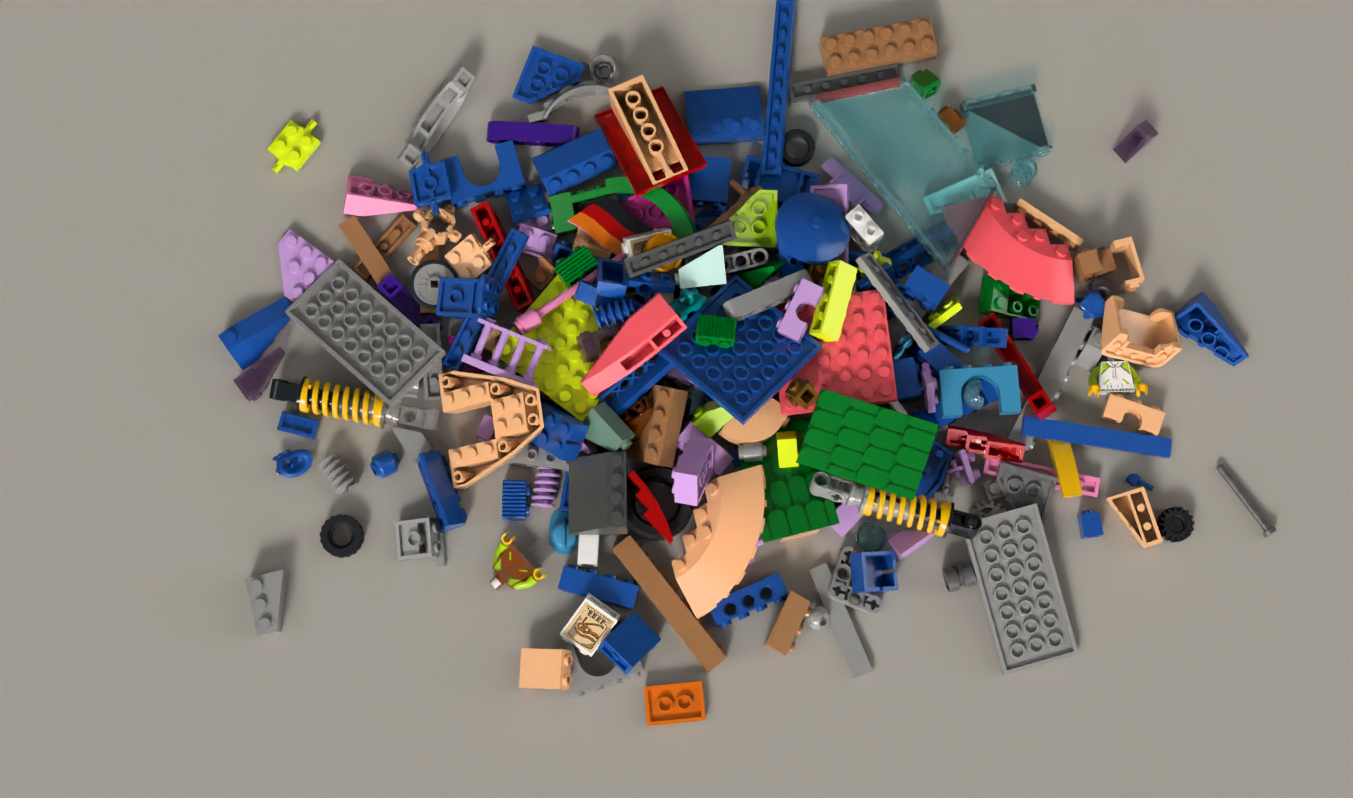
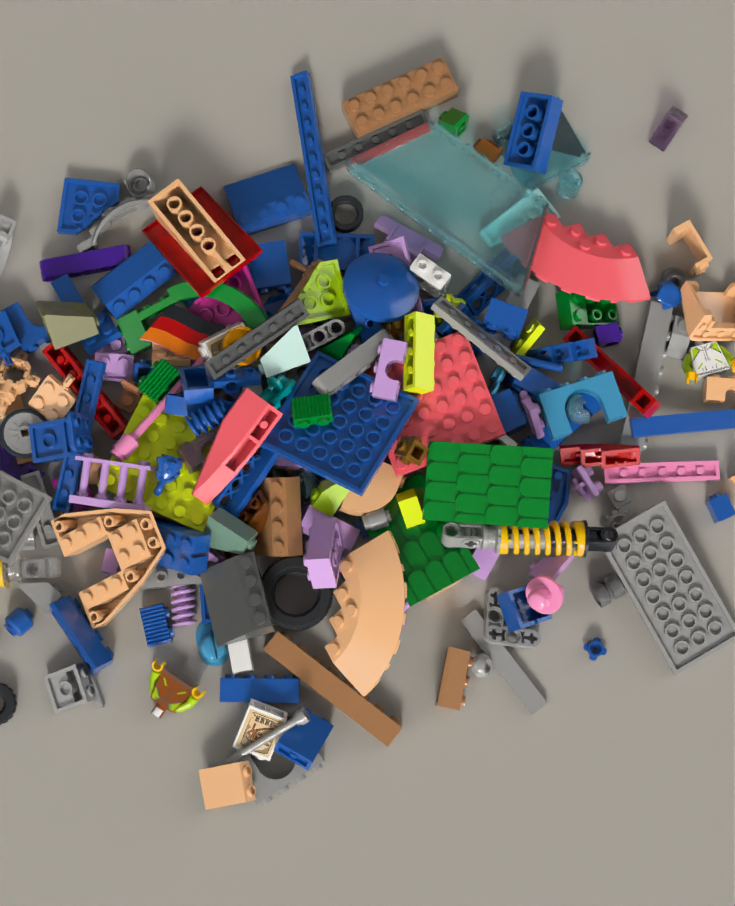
camera: 15 degrees left, 0 degrees up
(502, 187) = (67, 322): none -> slope
(562, 355) = (167, 470): none -> blue piece
(630, 622) = (300, 717): none -> light grey piece
(654, 514) = (296, 604): red slope -> none
(674, 703) = (362, 785): orange plate -> none
(773, 583) = (436, 651): blue brick -> none
(871, 537) = (512, 573): clear light blue hair -> none
(896, 564) = (544, 594): none -> bright pink plate
(937, 630) = (594, 654): none -> blue plate
(945, 489) = (572, 509): light grey bar -> none
(1000, 112) = (533, 132): none -> blue slope
(1025, 487) = (649, 487): flat silver plate -> none
(1043, 221) = (612, 231): light nougat plate -> none
(1065, 468) = (682, 459): yellow slope -> none
(1093, 264) = (658, 255): medium nougat brick -> none

